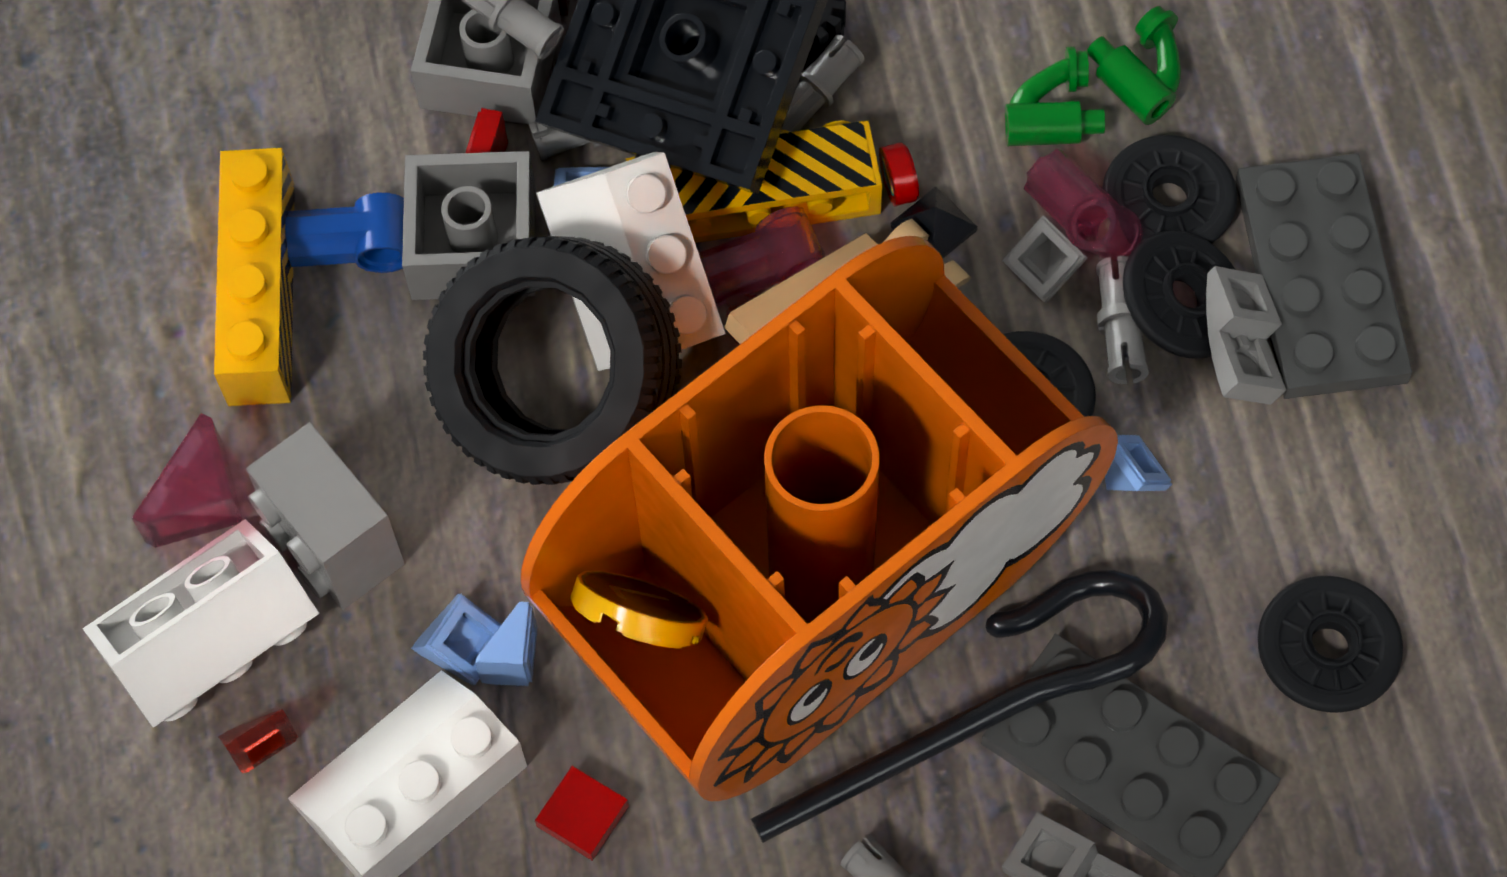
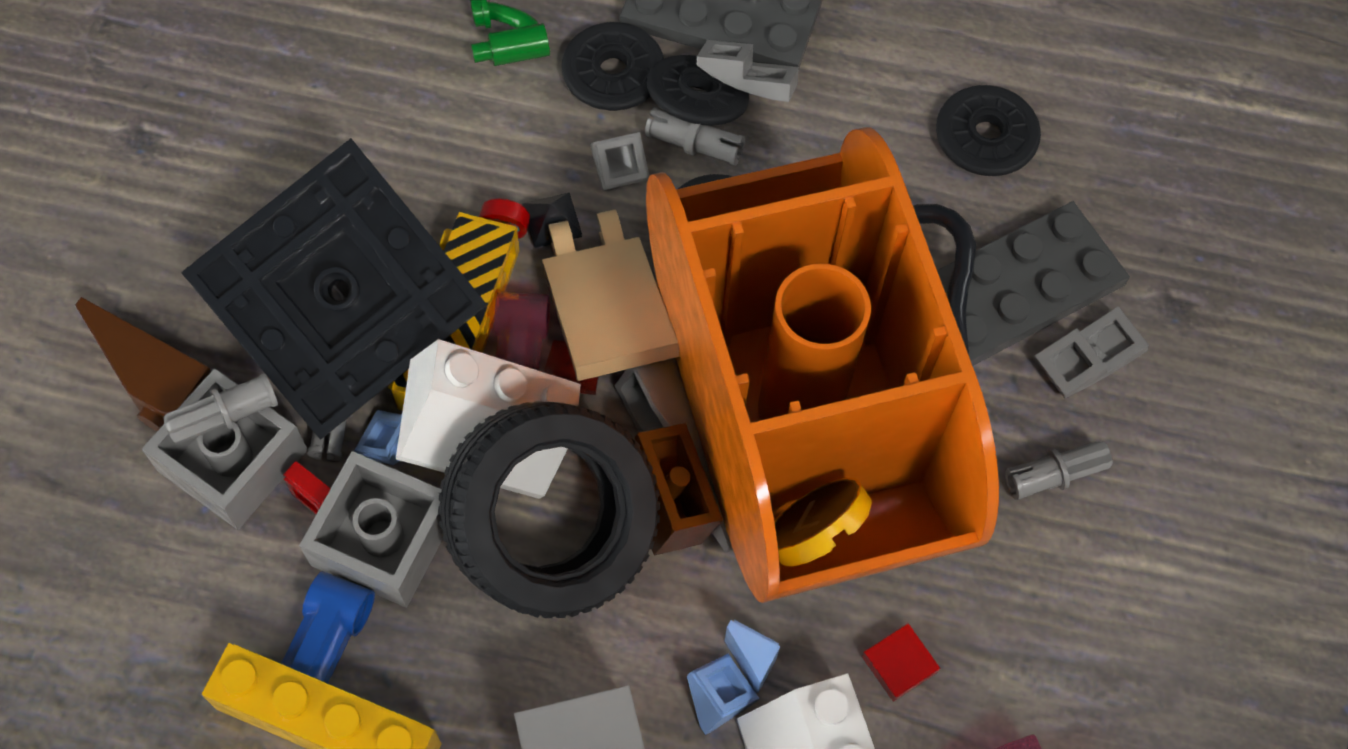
camera: 70 degrees left, 0 degrees up
(1052, 122) = (518, 107): green plant -> none
(1081, 206) = (592, 118): clear pink piece -> none

